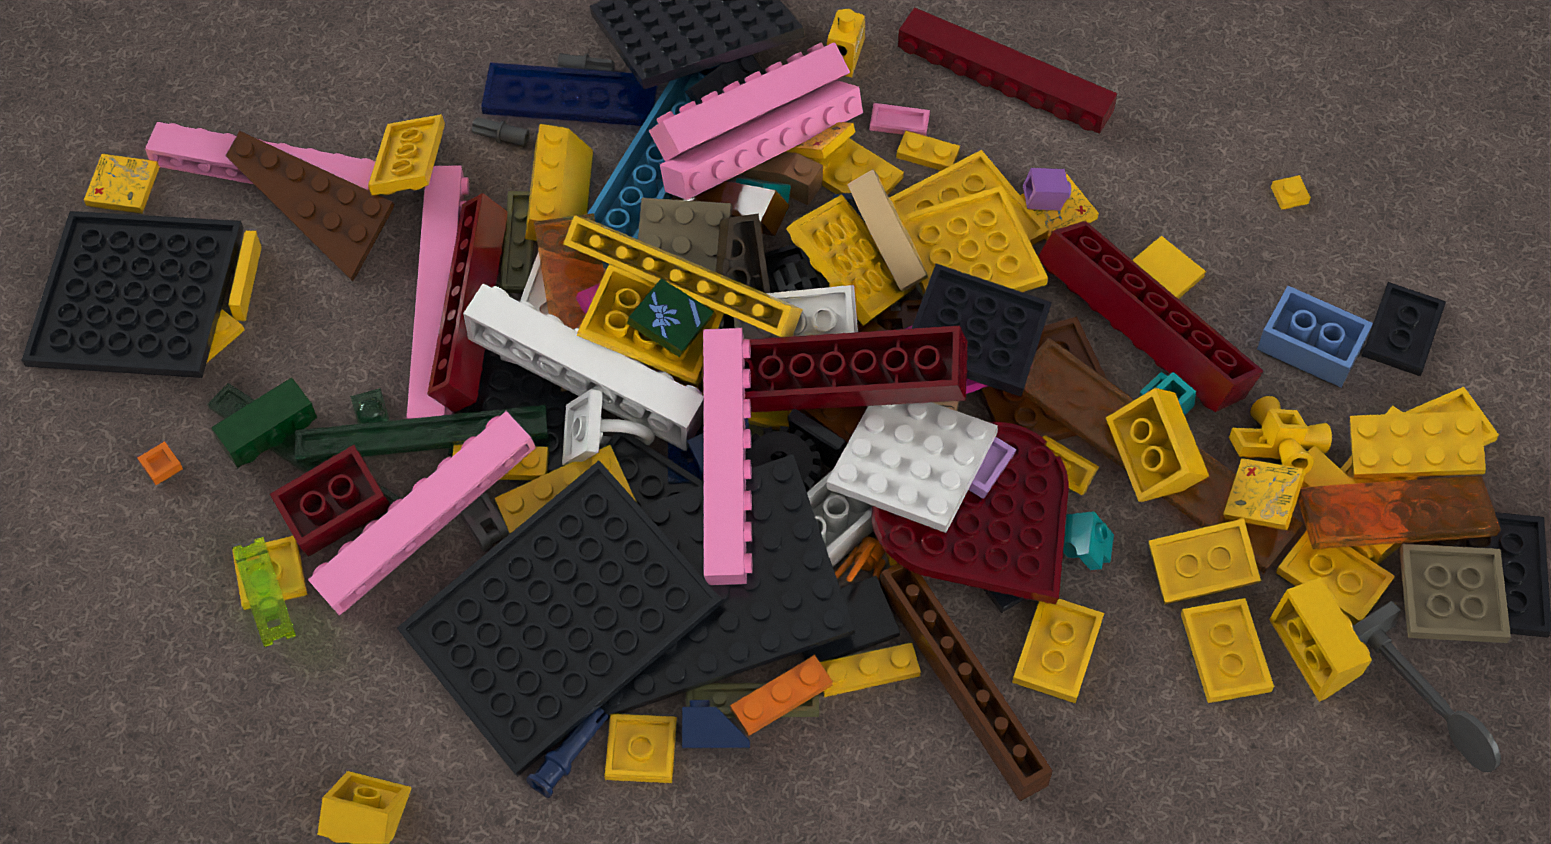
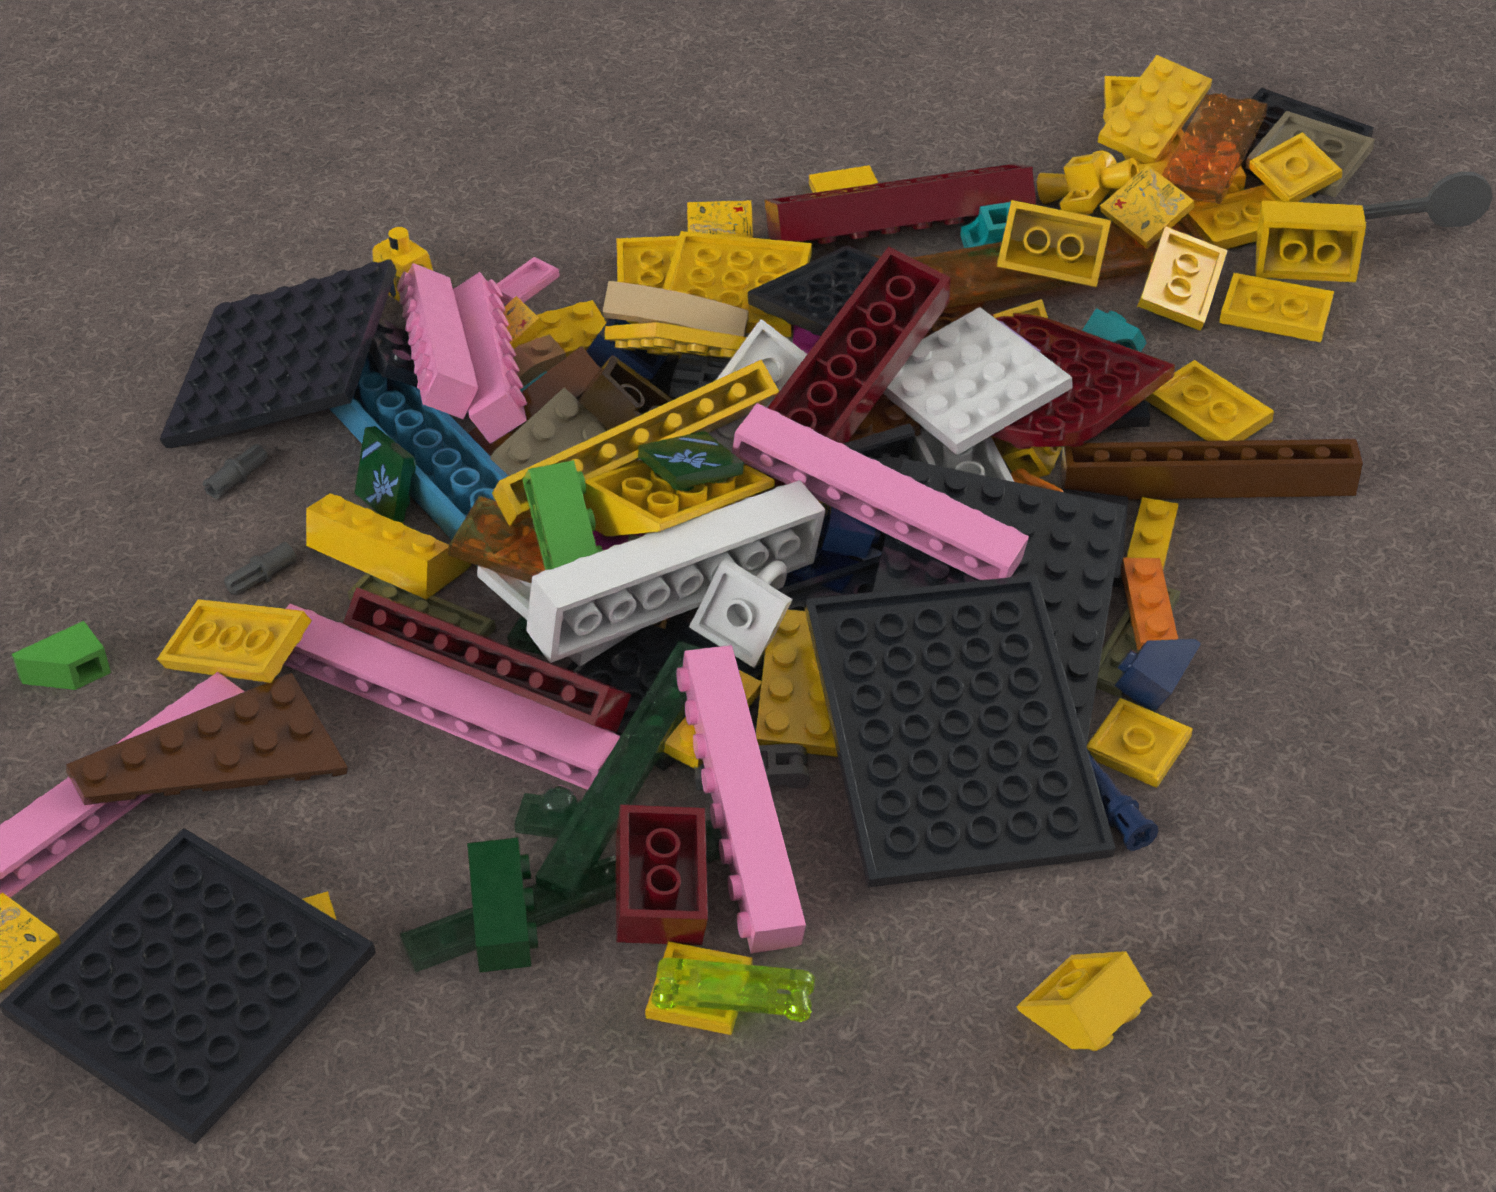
camera: 60 degrees left, 15 degrees down
(160, 463) = (466, 1040): orange plate -> none
(245, 275) = (261, 858): yellow tile -> none
(359, 78) = (63, 660): none -> bright green slope
(566, 94) = (262, 497): clear blue plate -> none
(569, 274) = (560, 513): none -> bright green brick
(615, 150) = (384, 474): none -> dark green tile
(927, 151) = (580, 278): yellow plate -> none
(1007, 70) = (533, 190): dark red brick -> none
(1046, 189) = (706, 209): medium lavender brick -> none
(1290, 192) = (823, 90): yellow plate -> none
(1314, 336) = (995, 127): medium blue brick -> none
(1404, 329) = (1016, 88): black tile -> none
(1406, 588) = (1295, 169): none -> yellow tile

